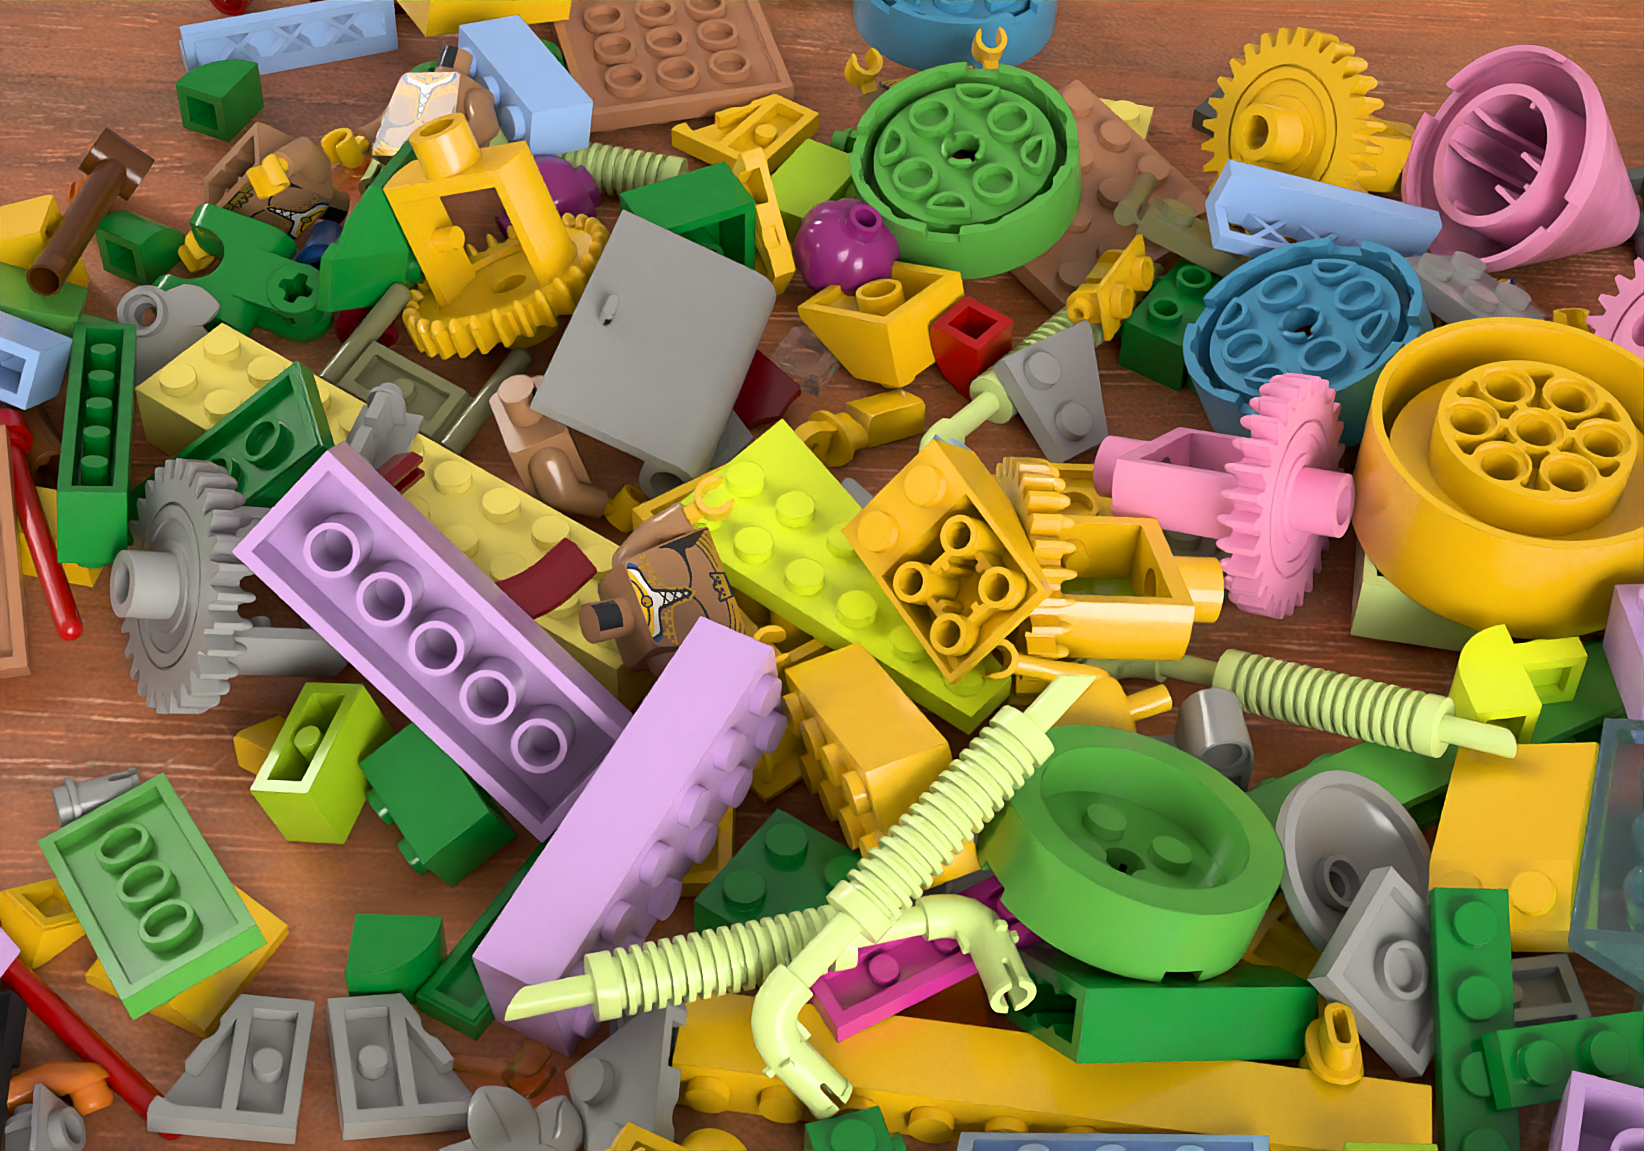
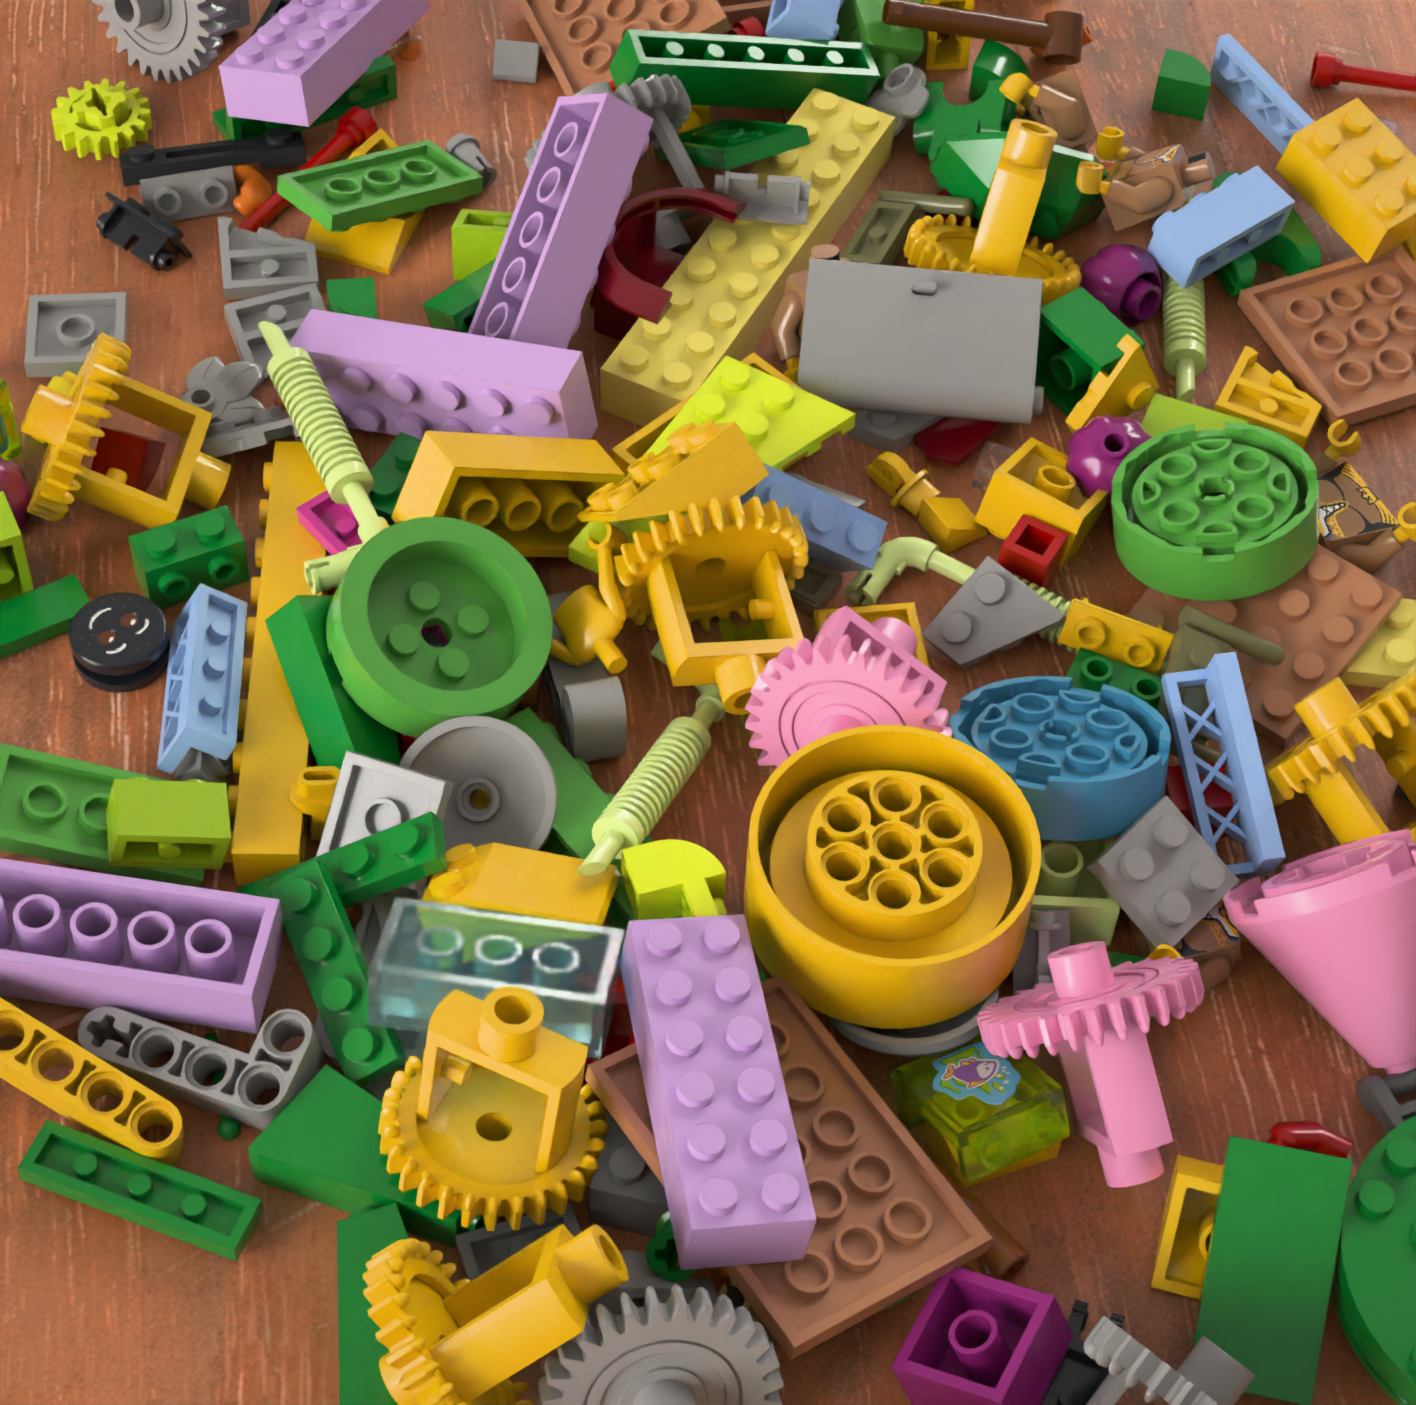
camera: 80 degrees right, 5 degrees up
(662, 586) = (645, 372): medium nougat torso -> none
(896, 873) = (365, 473): yellowish green piece -> none

